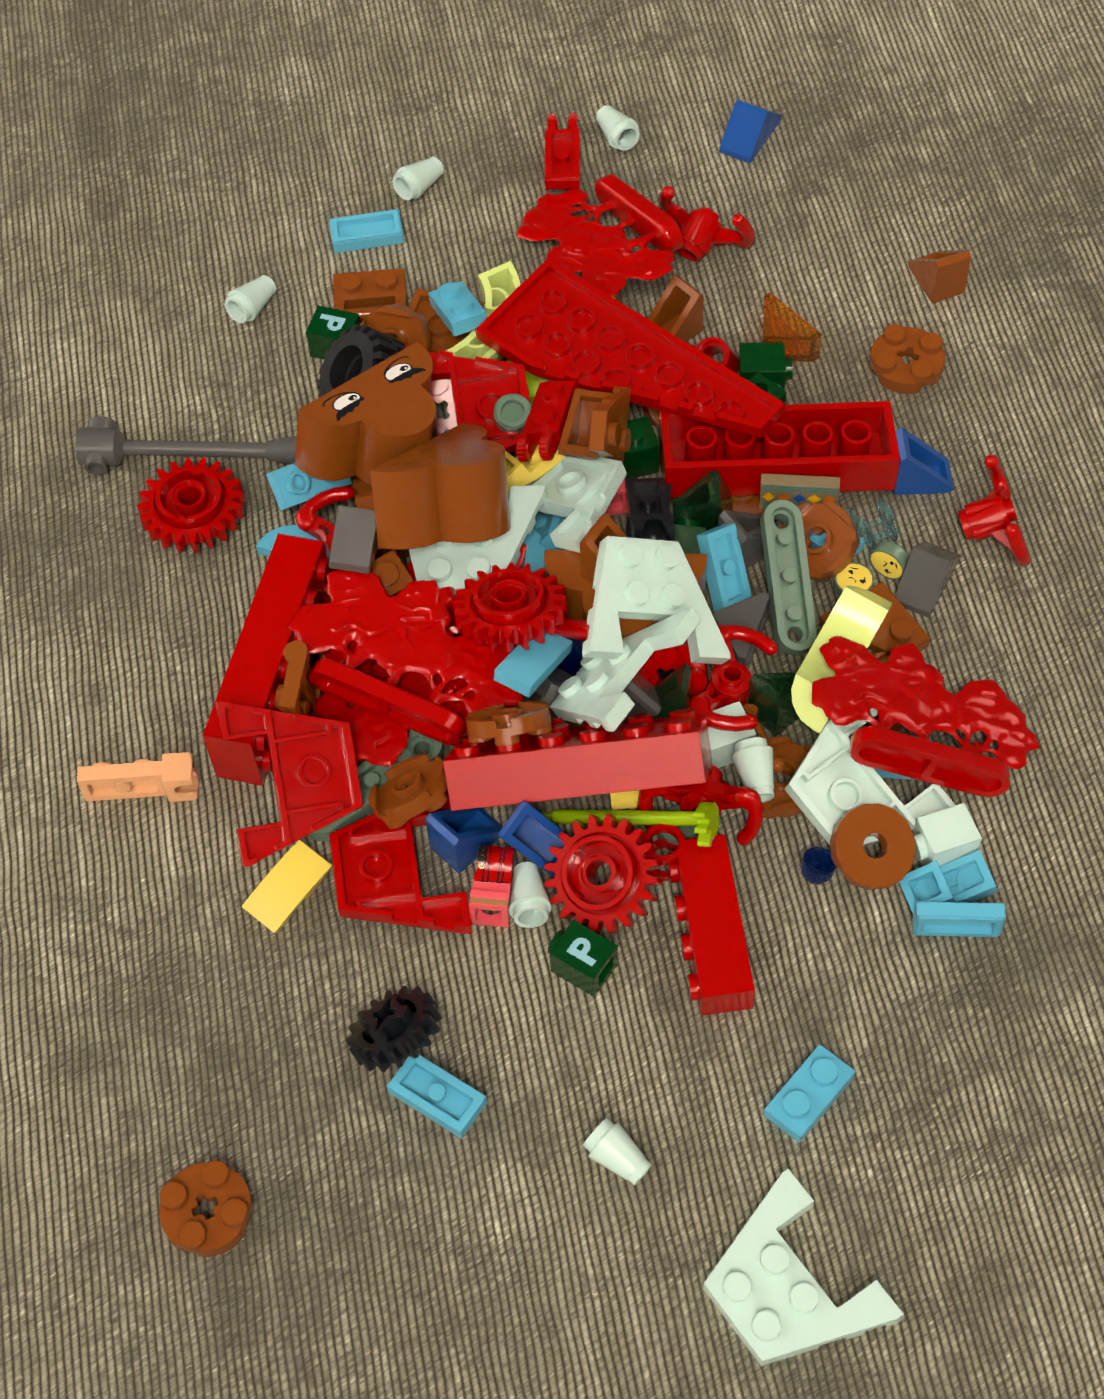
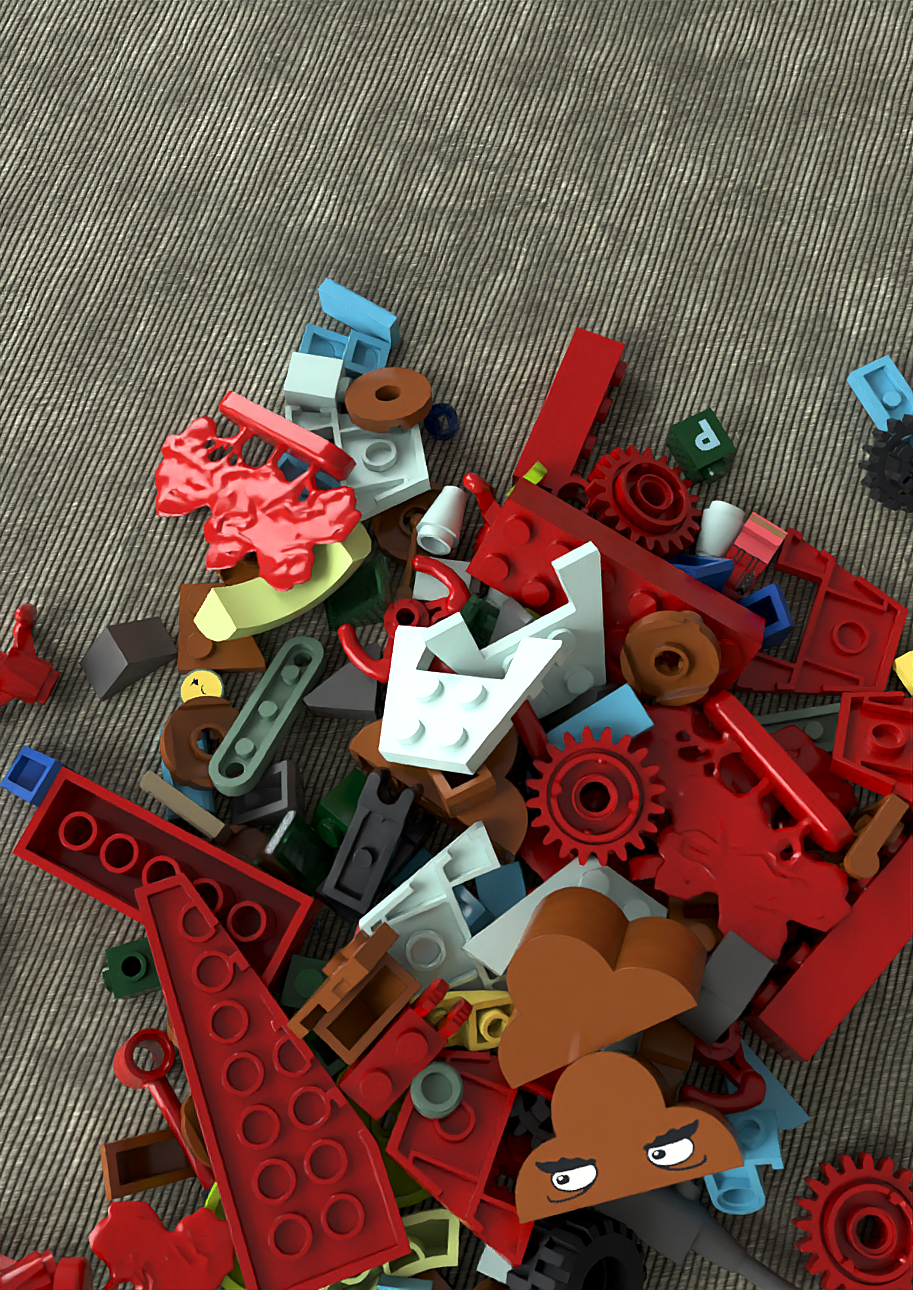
camera: 150 degrees left, 15 degrees up
(411, 789) = (813, 688): dark orange plate -> none
(616, 1151) = (762, 284): light aqua cone -> none
(725, 566) = (324, 760): medium azure plate -> none
(767, 360) = (98, 1017): dark green brick -> none
(775, 1298) = (696, 132): light aqua wing -> none
(784, 325) = (39, 1058): clear orange slope -> none
(809, 1093) = (574, 255): medium azure plate -> none
(887, 521) = (117, 744): clear light blue piece -> none
(889, 559) = (152, 687): tile -> none

